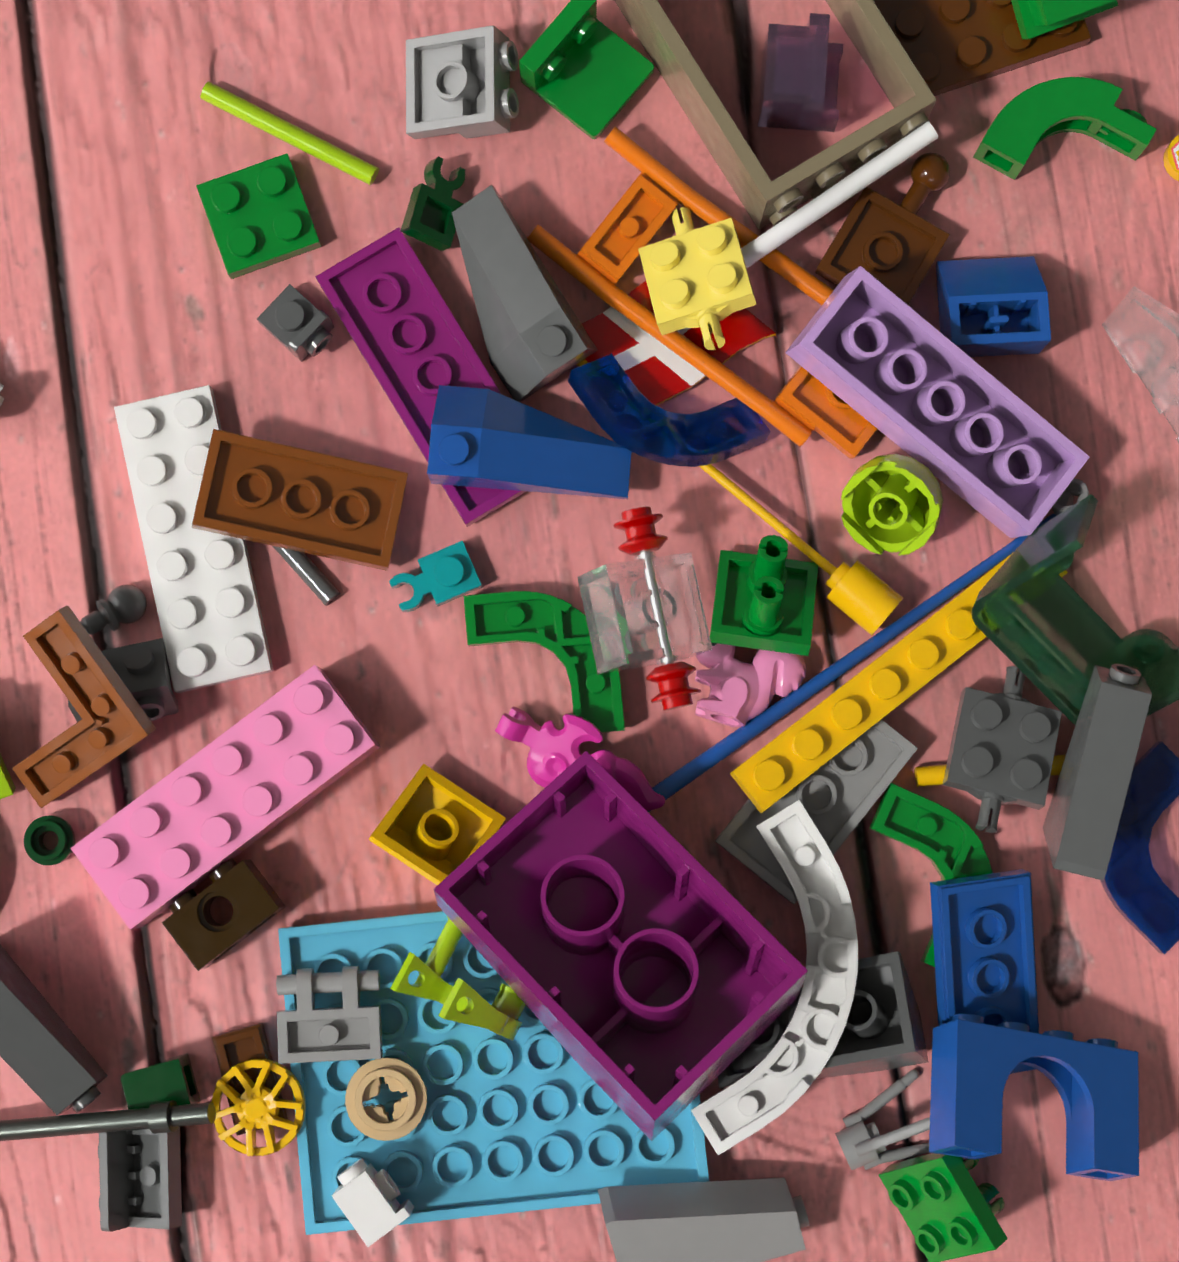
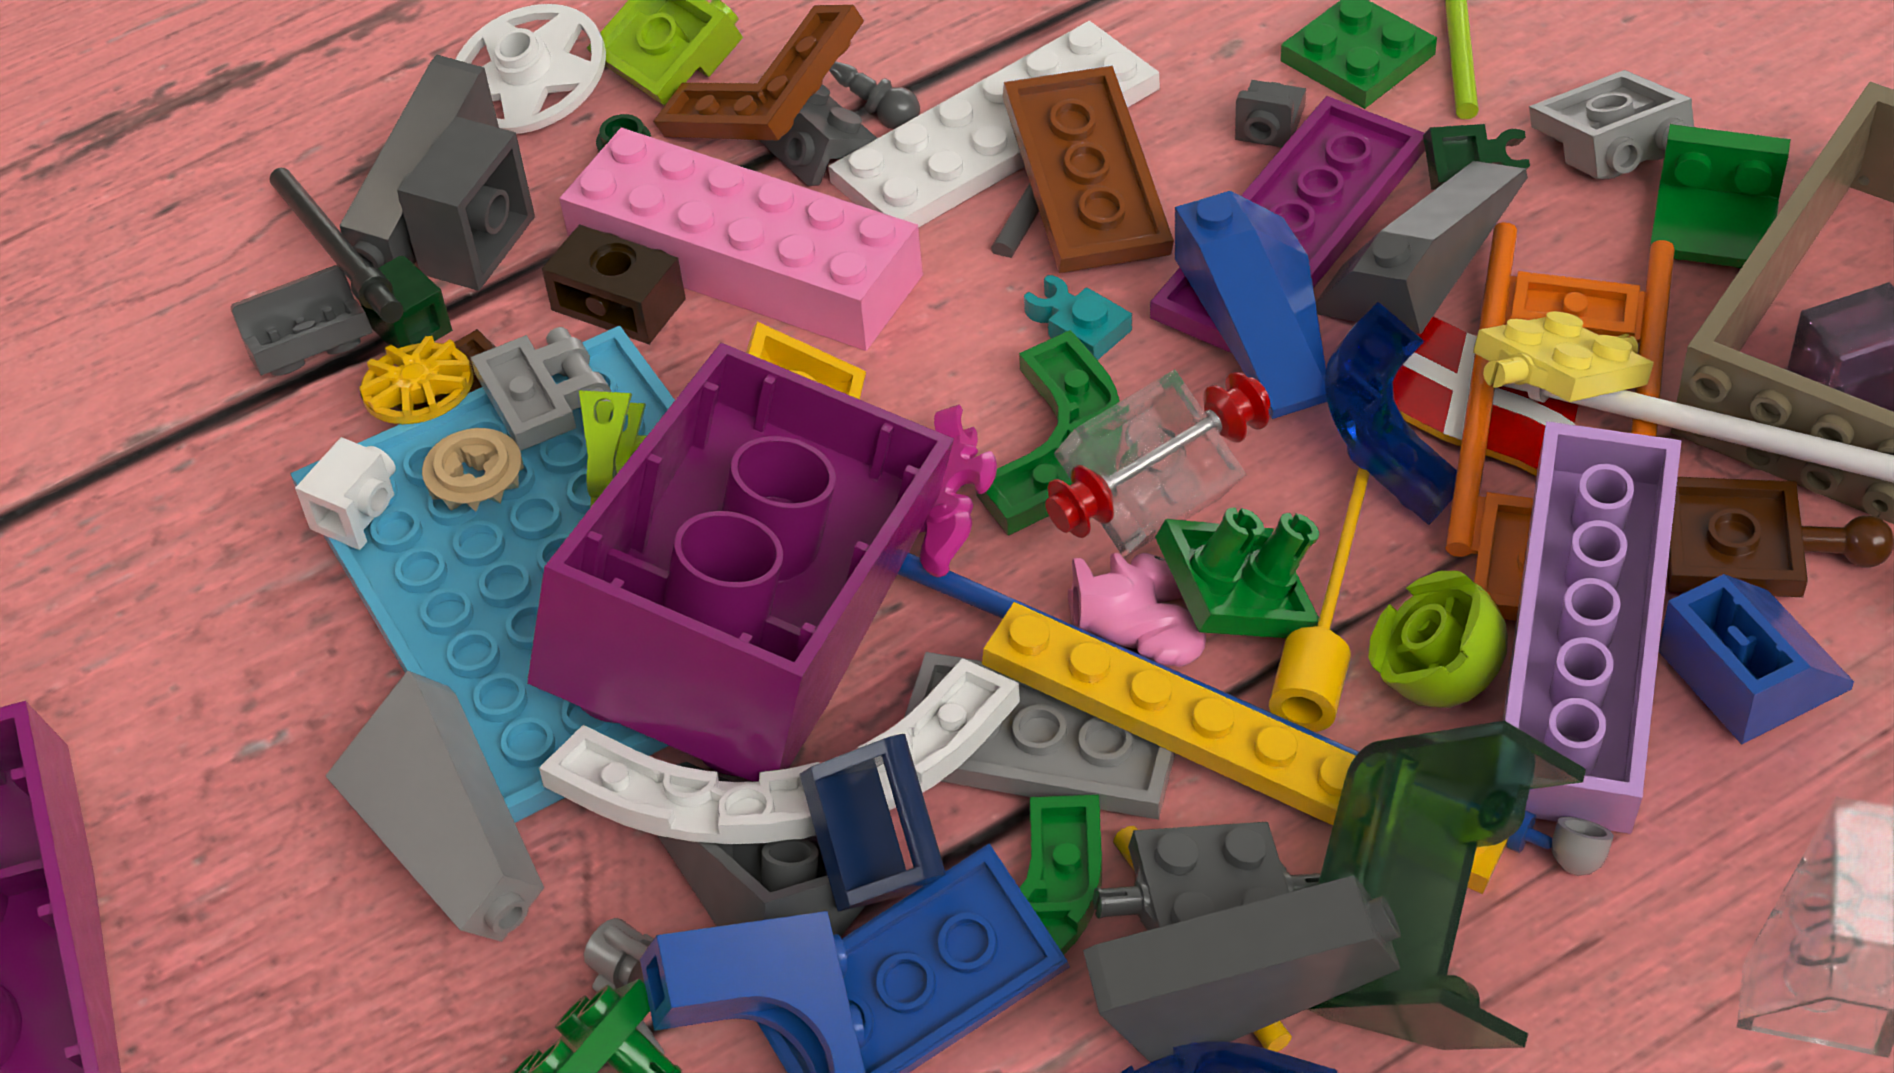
camera: 70 degrees right, 35 degrees down
(83, 1004) = (466, 203): none -> dark grey brick
(898, 959) = (858, 829): none -> dark blue tile

